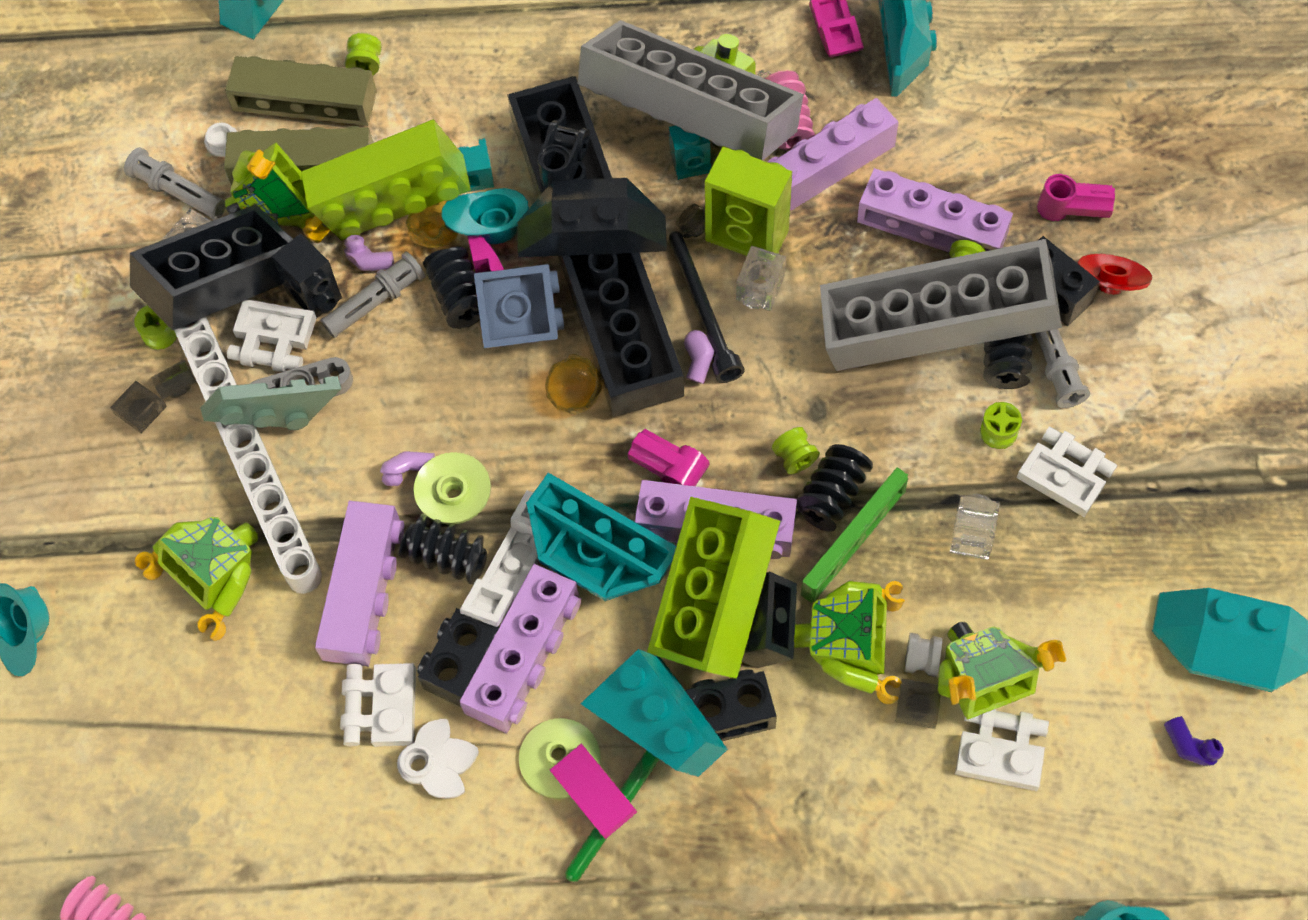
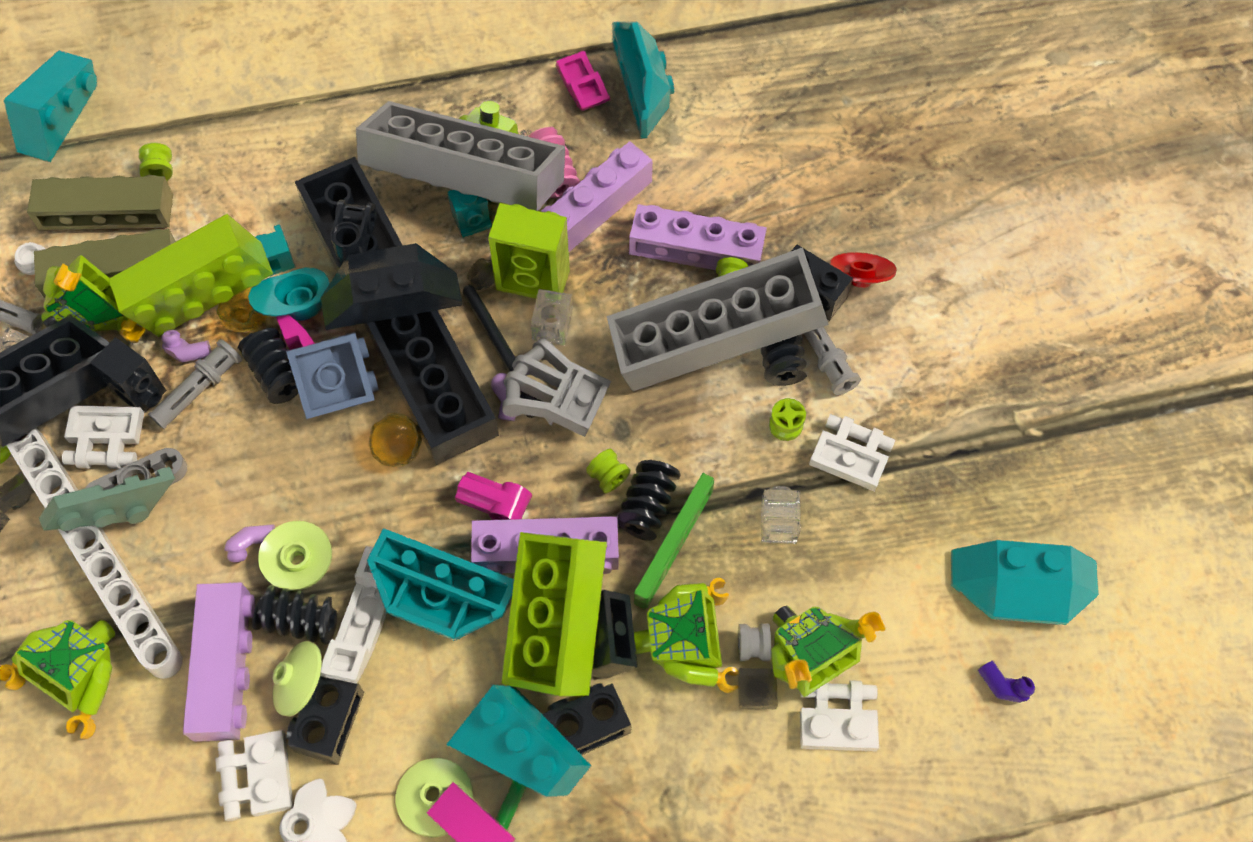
camera: 15 degrees left, 0 degrees up
(436, 613) = (296, 678): none -> yellowish green dish
(520, 649) = (381, 699): lavender brick -> none
(766, 375) = (570, 405): none -> light grey plate
(1074, 199) = (809, 207): dark pink piece -> none

